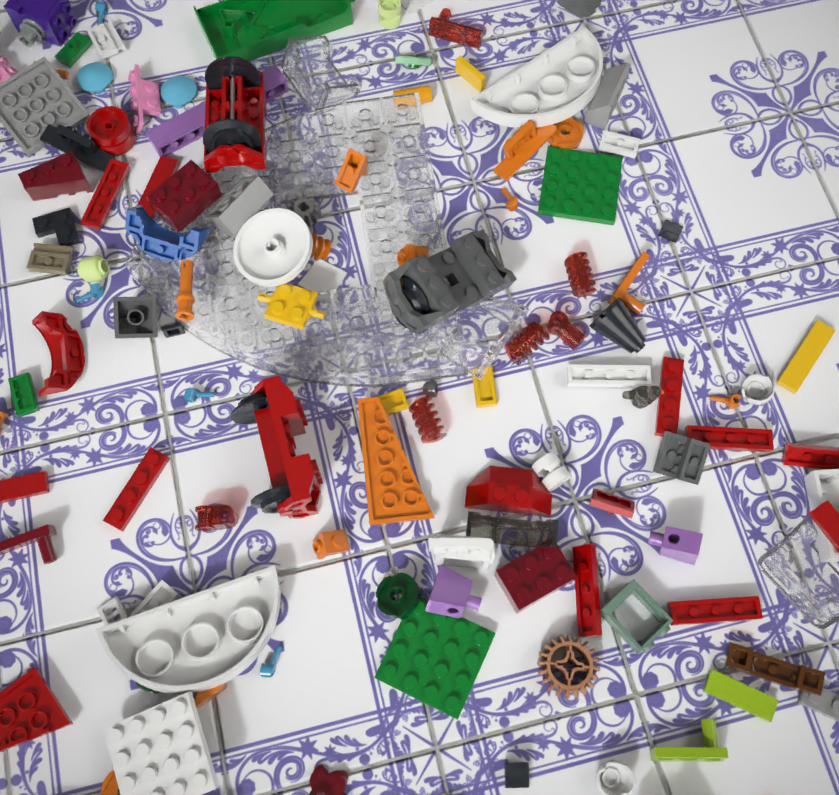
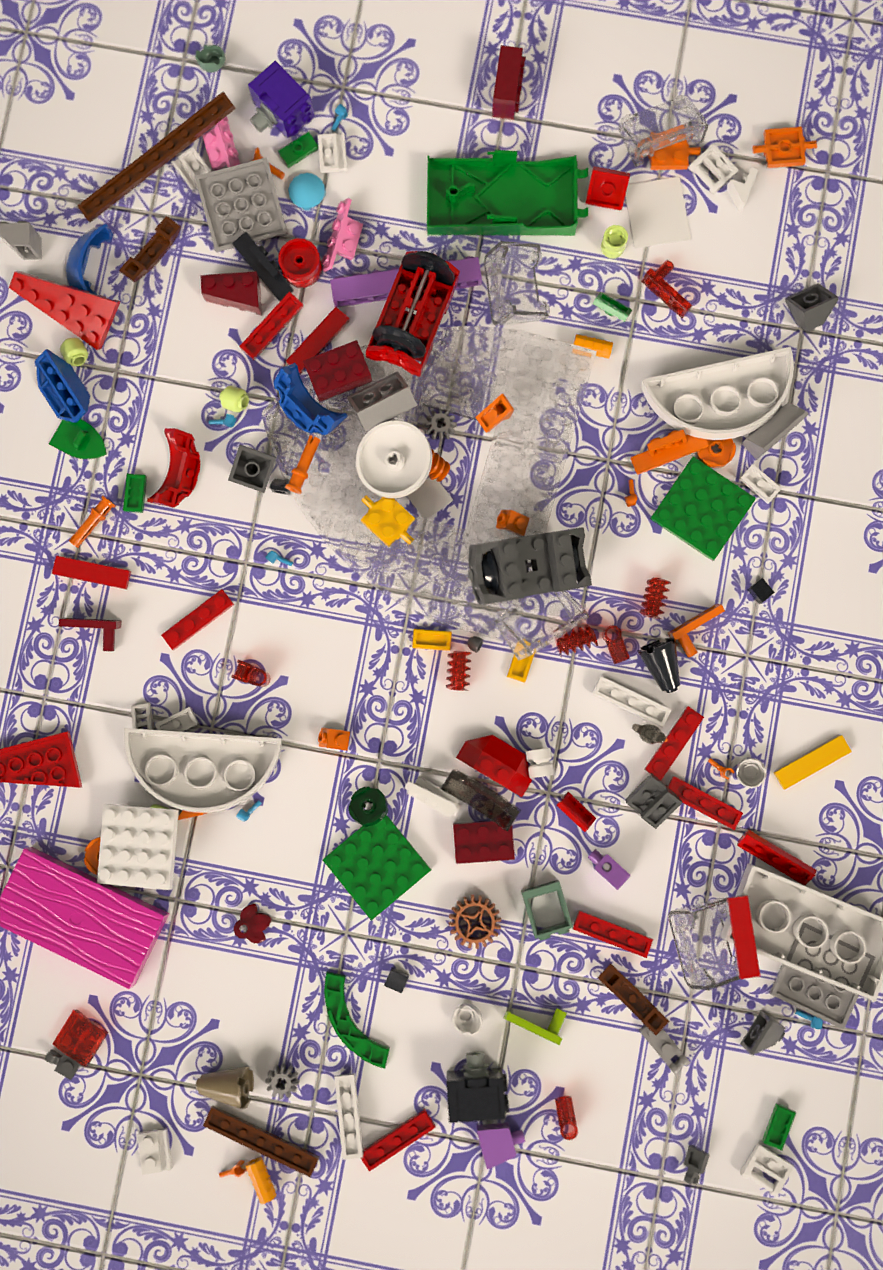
camera: 30 degrees right, 15 degrees up
(50, 259) = (200, 371): dark tan plate -> none
(58, 222) = (221, 336): black plate -> none
(178, 91) = (378, 241): medium azure dish -> none
(292, 478) = (332, 614): red piece -> none
(389, 479) = (404, 709): orange wing -> none
(451, 594) = (410, 825): medium lavender torso -> none
(470, 73) = (658, 346): yellow tile -> none
(587, 591) = (519, 871): red plate -> none
(740, 695) = (597, 1005): lime tile -> none

